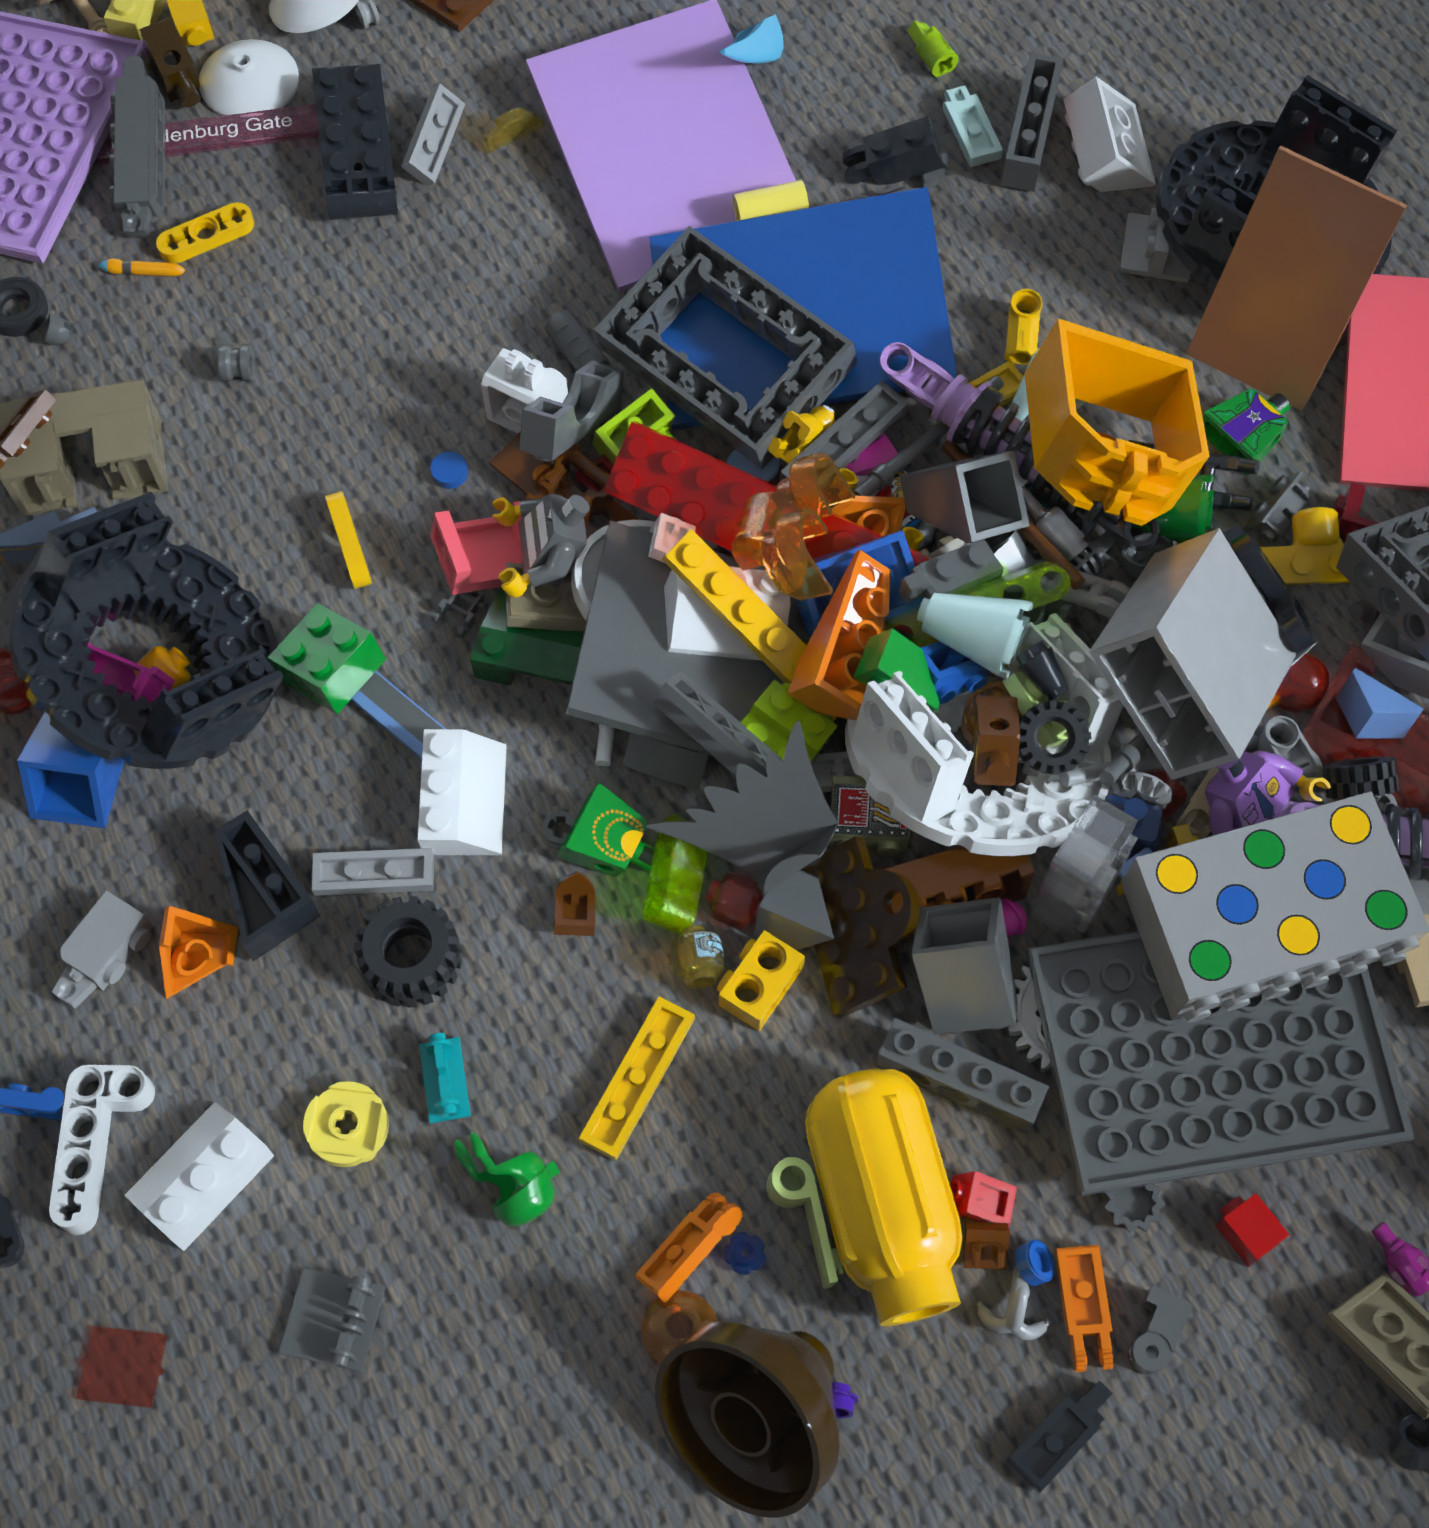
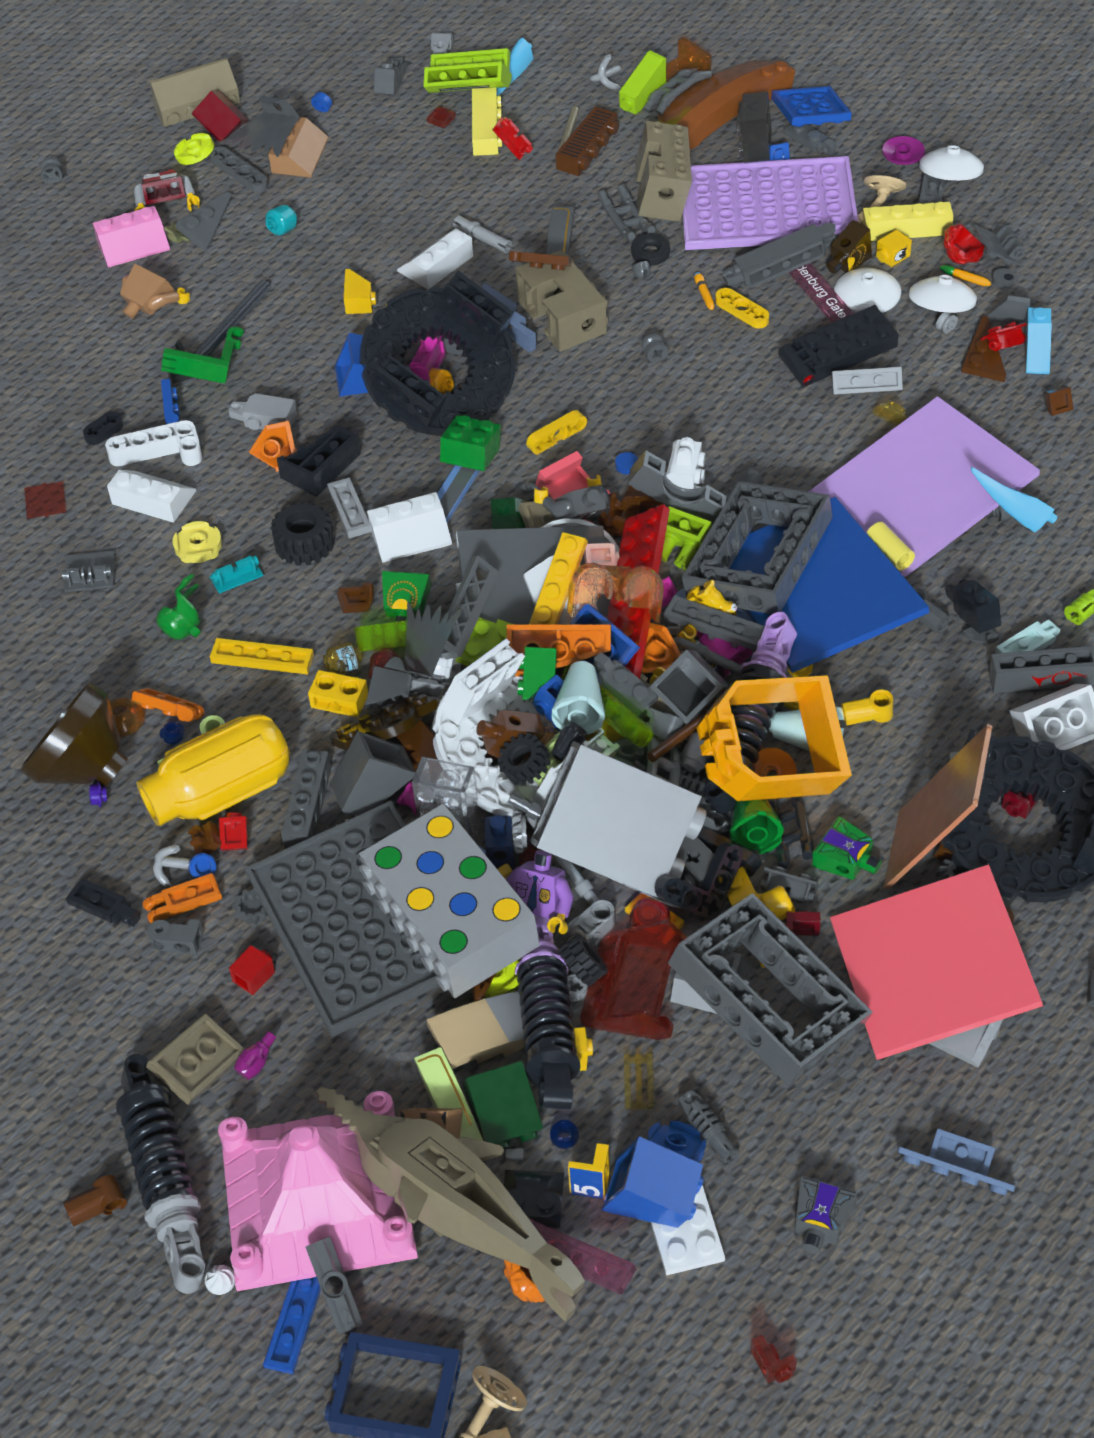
camera: 75 degrees right, 15 degrees down
(1375, 709) = (640, 961): medium blue slope -> none

